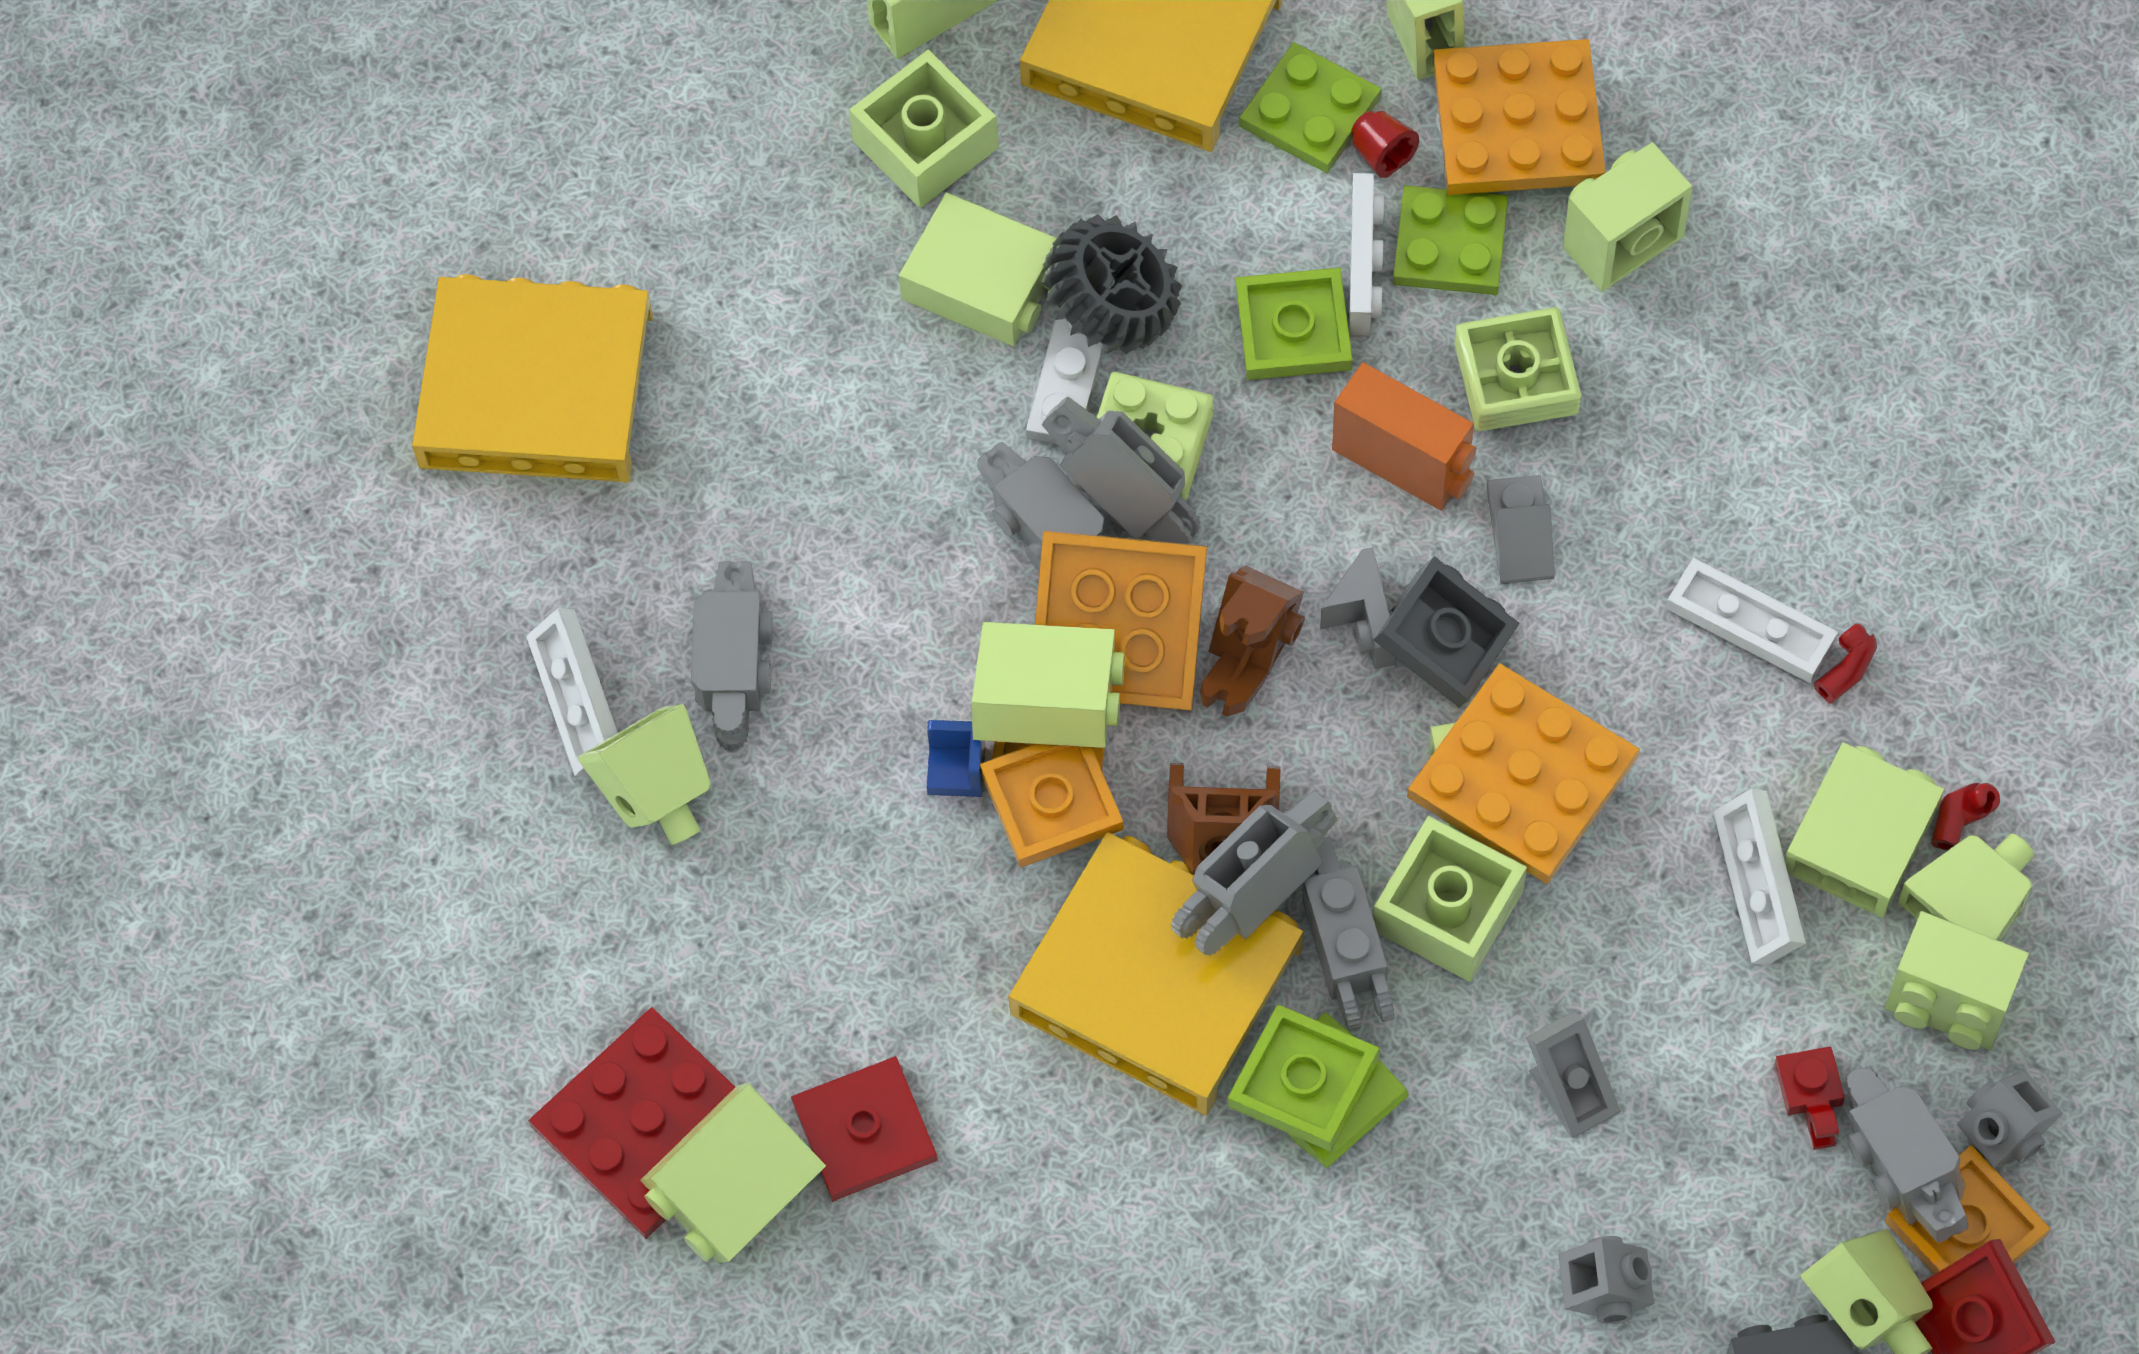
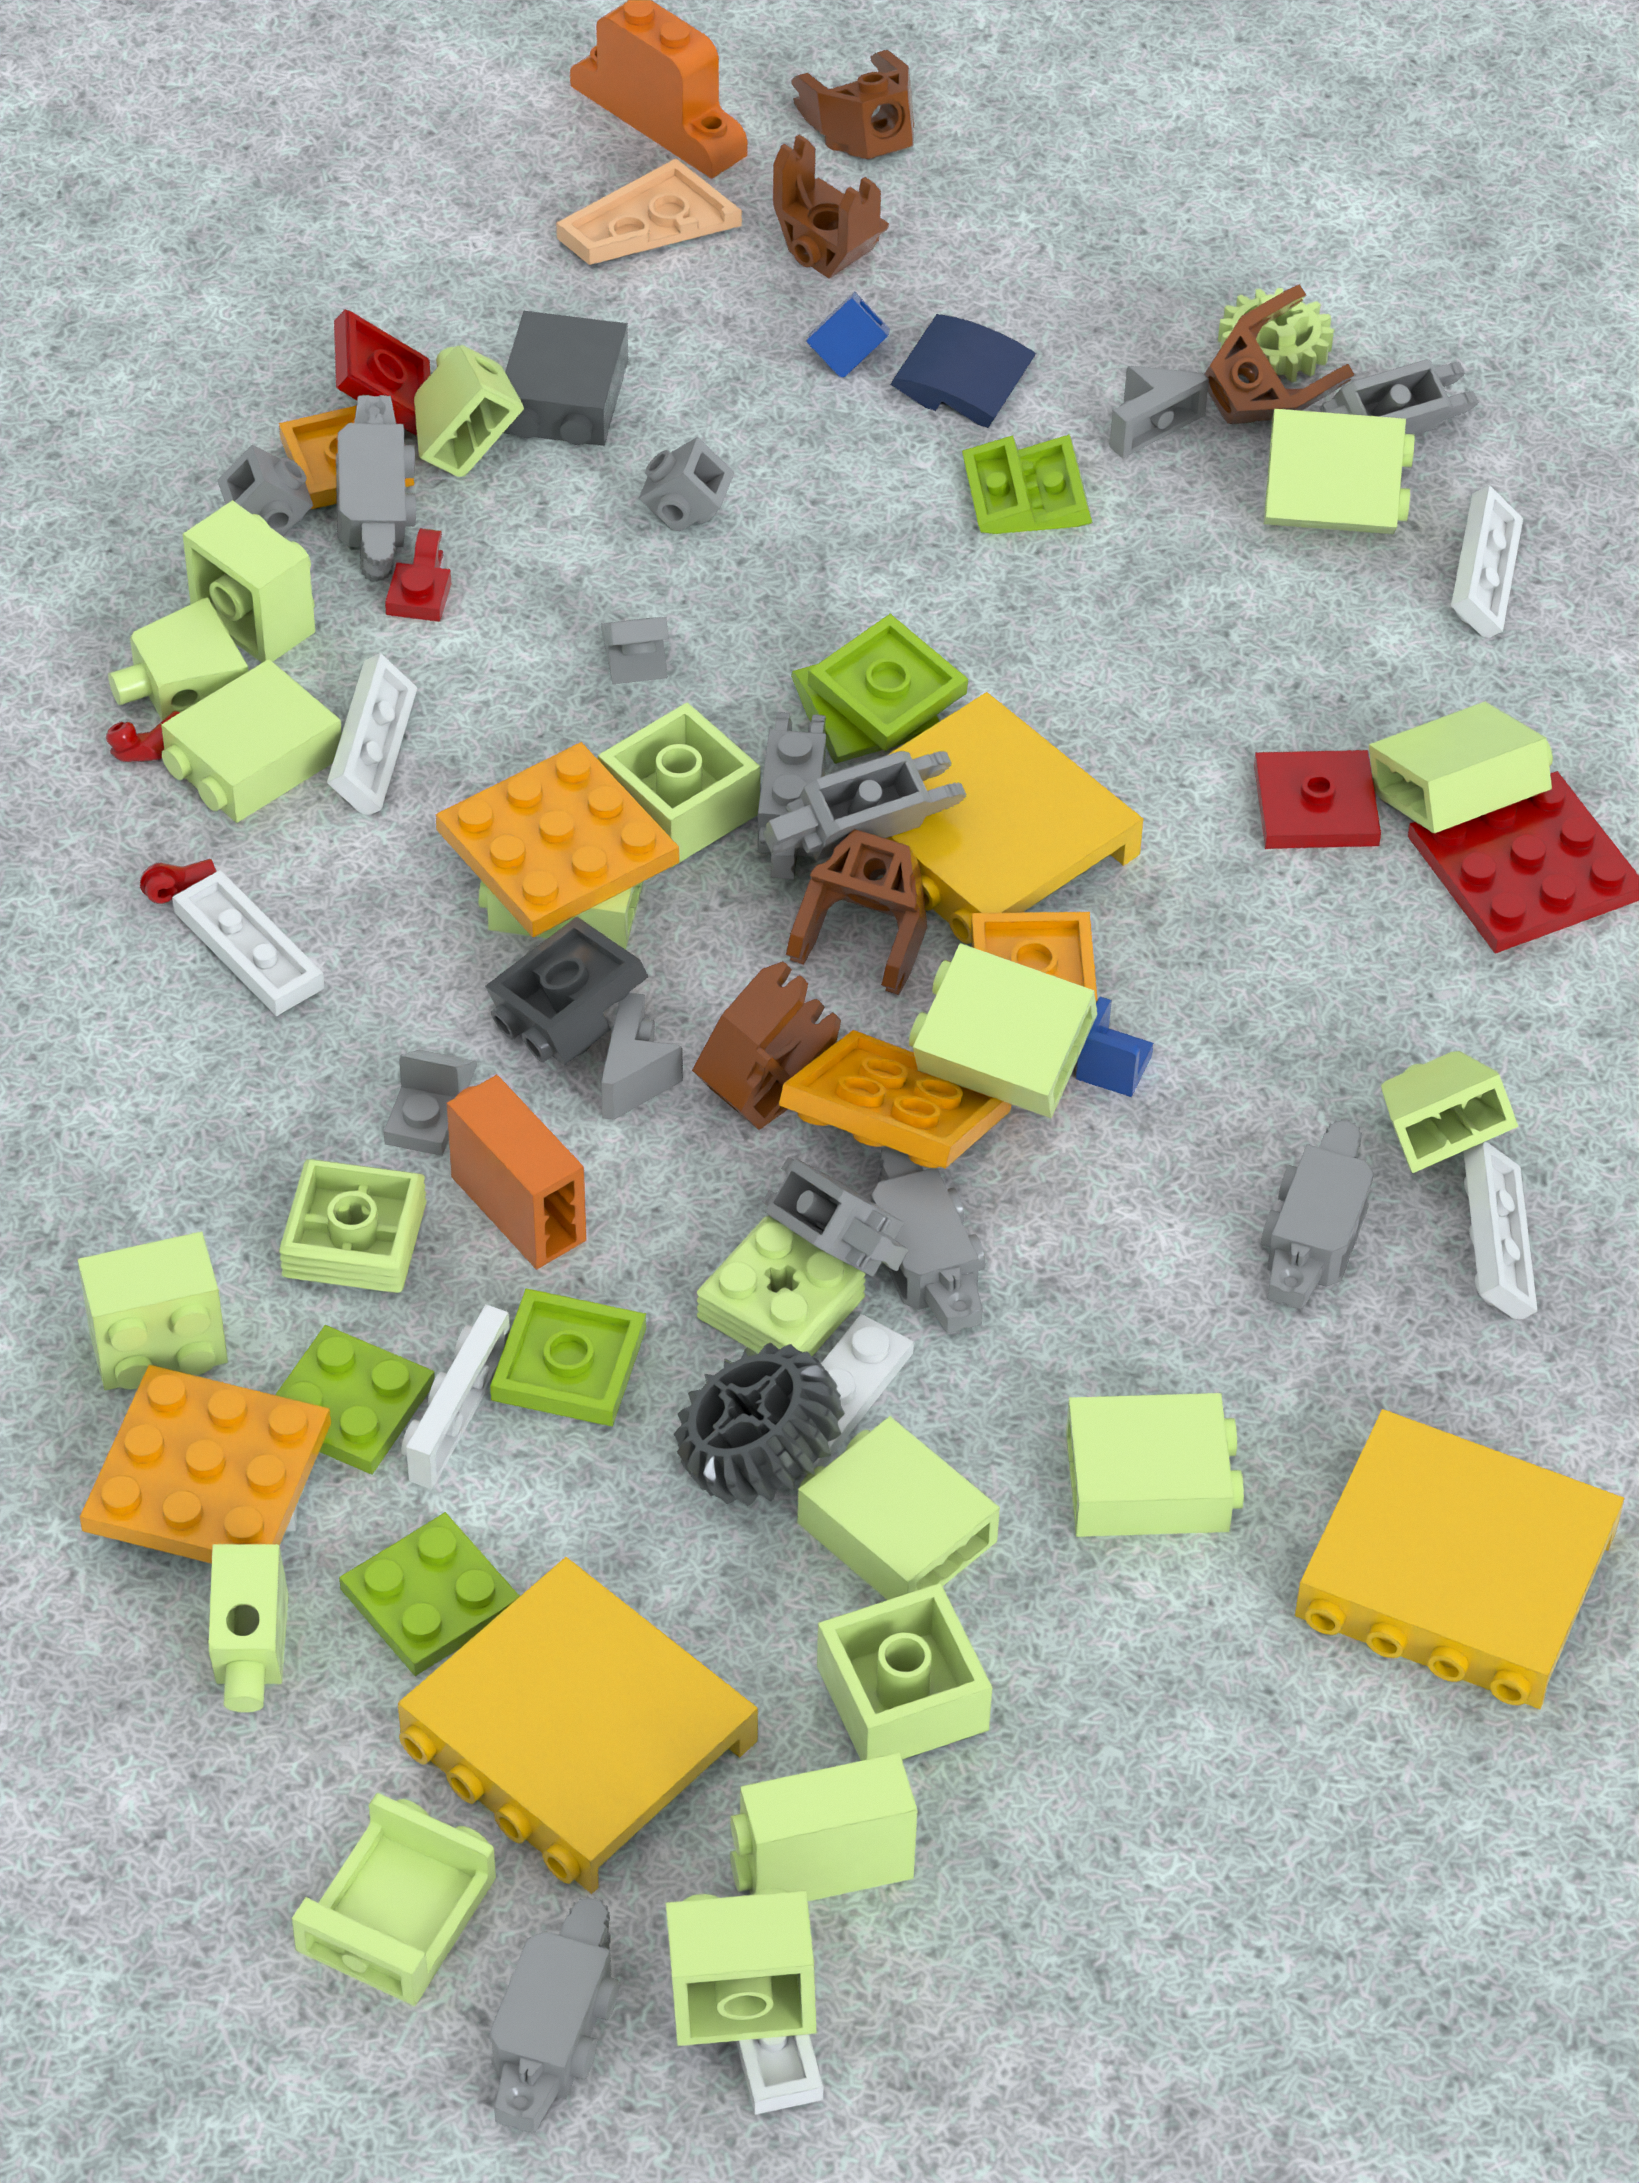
camera: 165 degrees left, 15 degrees down
(797, 377) = (1152, 1464): none -> yellowish green brick
(1384, 142) = (369, 1509): red hat -> none

